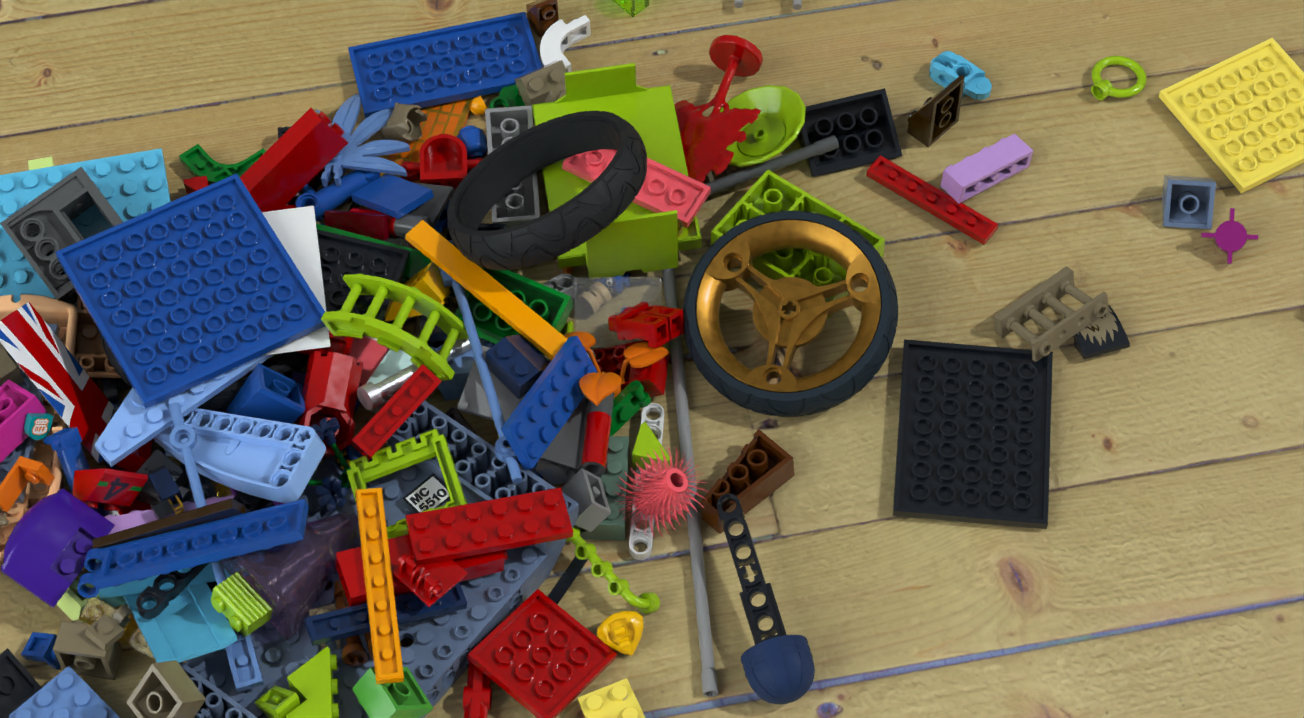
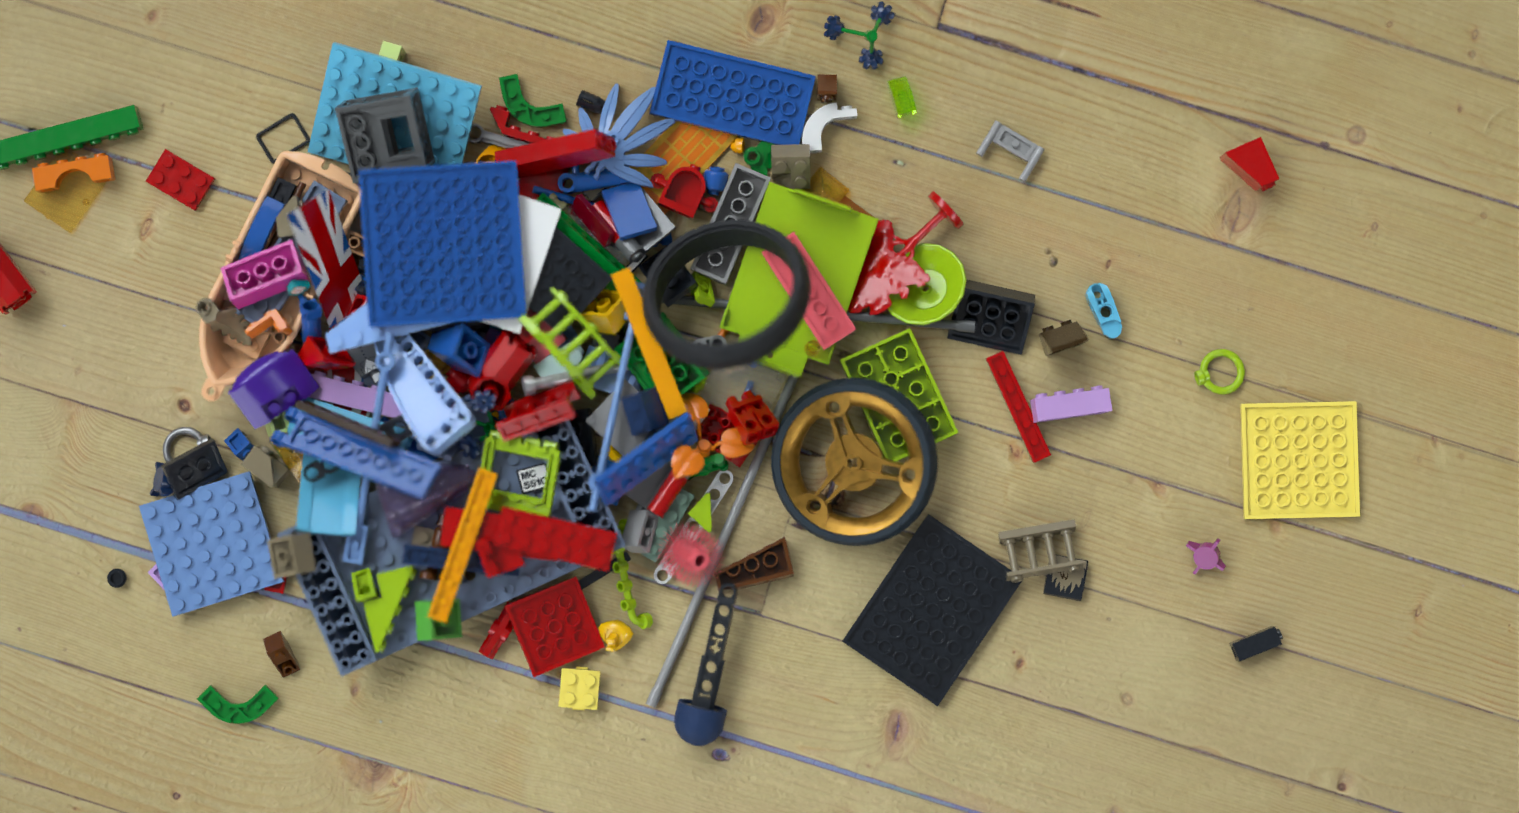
camera: 25 degrees right, 30 degrees up
(108, 630) = (280, 468): dark tan plate -> none
(167, 492) = (365, 378): piece -> none
(241, 604) = (369, 509): lime brick -> none
(404, 123) = (672, 140): dark tan hair -> none
(1188, 202) = (1199, 507): sand blue slope -> none

